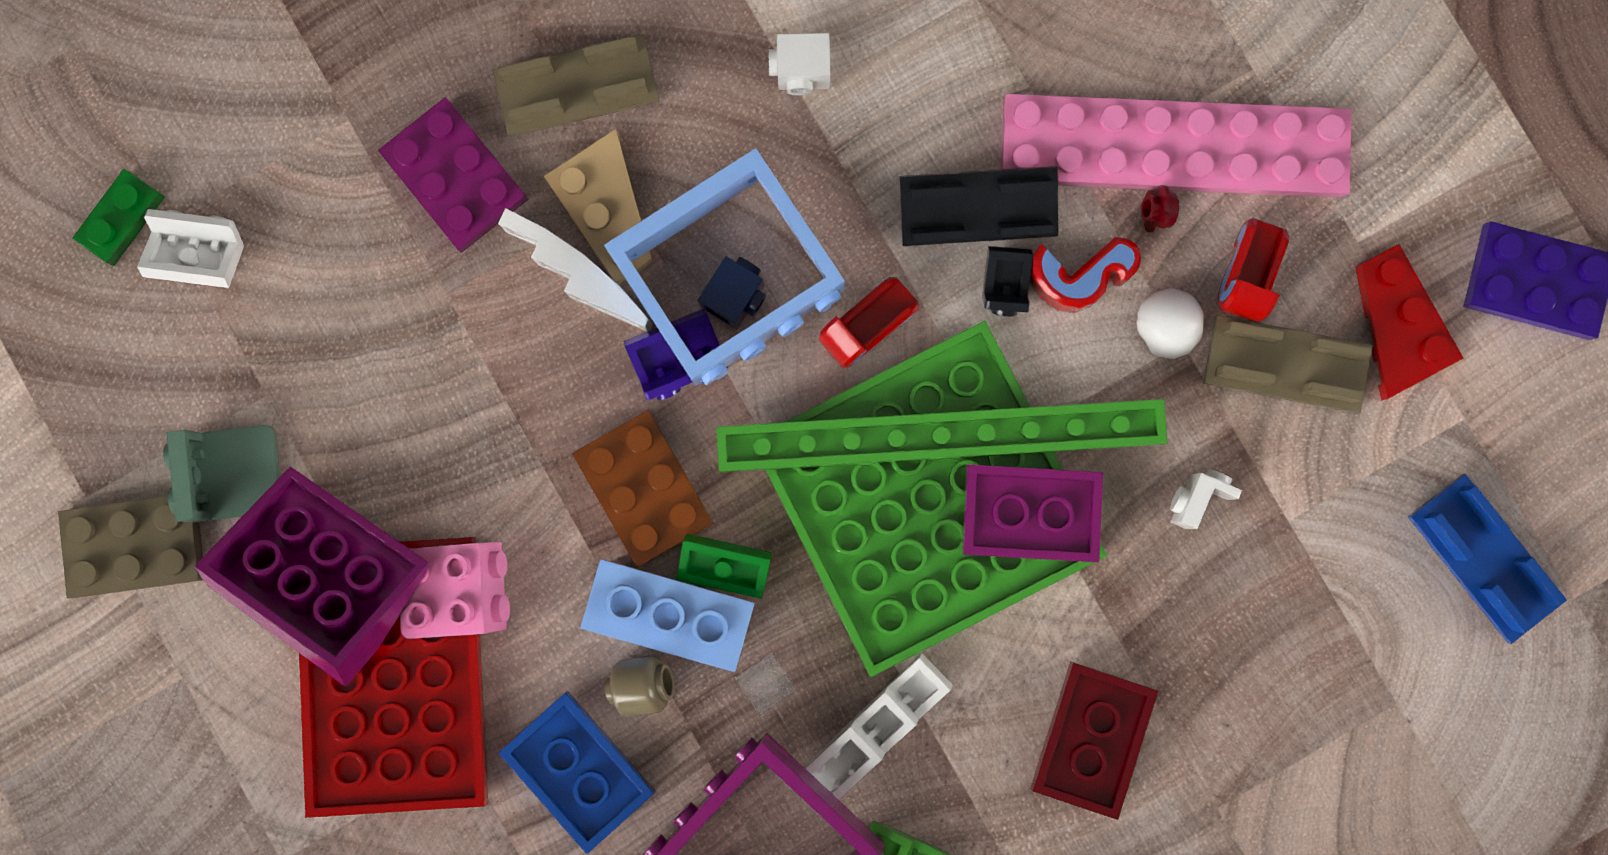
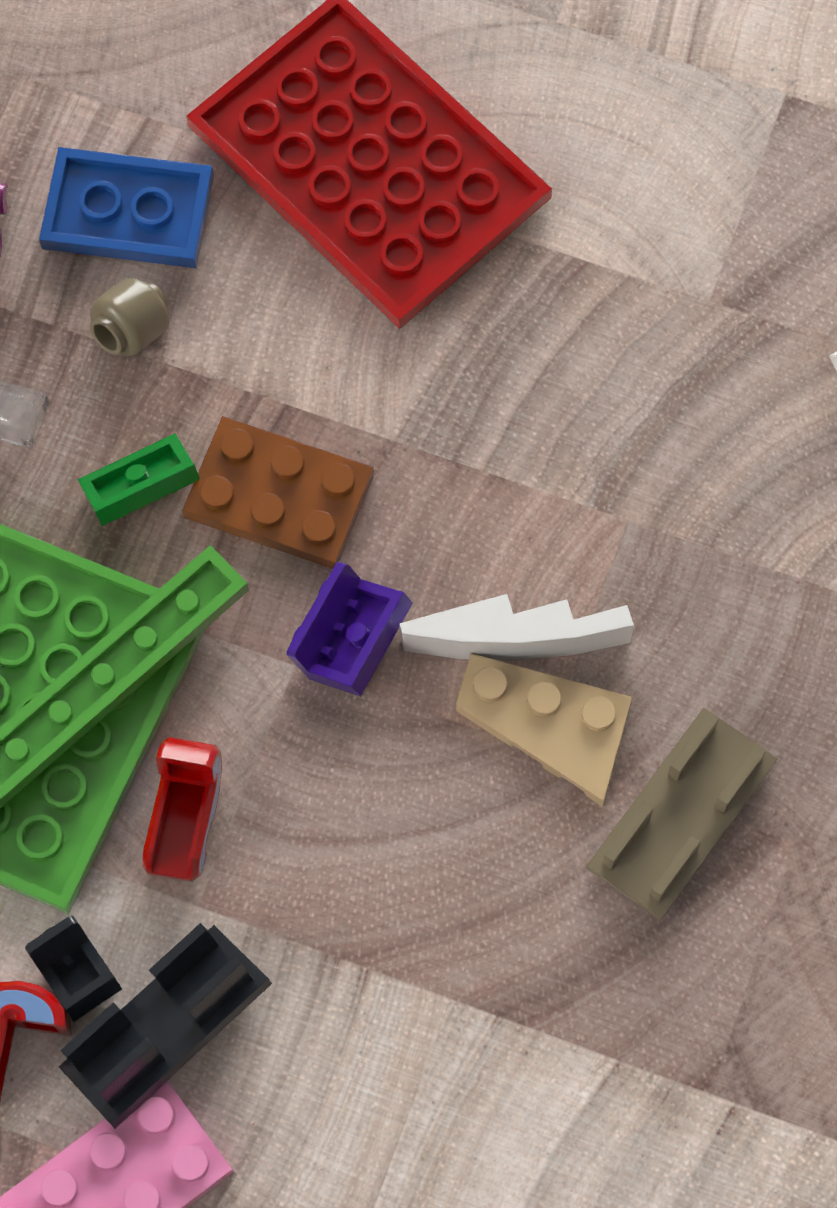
camera: 140 degrees right, 15 degrees down
(127, 547) = (703, 86): dark tan plate -> none
(219, 471) = (677, 199): sand green bracket -> none
(314, 574) = (506, 171): magenta slope -> none
(452, 174) = (723, 631): magenta plate -> none
(458, 592) = (372, 262): bright pink bracket -> none
(667, 615) = (154, 394): light blue brick -> none
(689, 209) = (275, 680): light blue window -> none
(733, 291) = (344, 734): dark blue brick -> none
(801, 62) = (472, 1020): white brick -> none

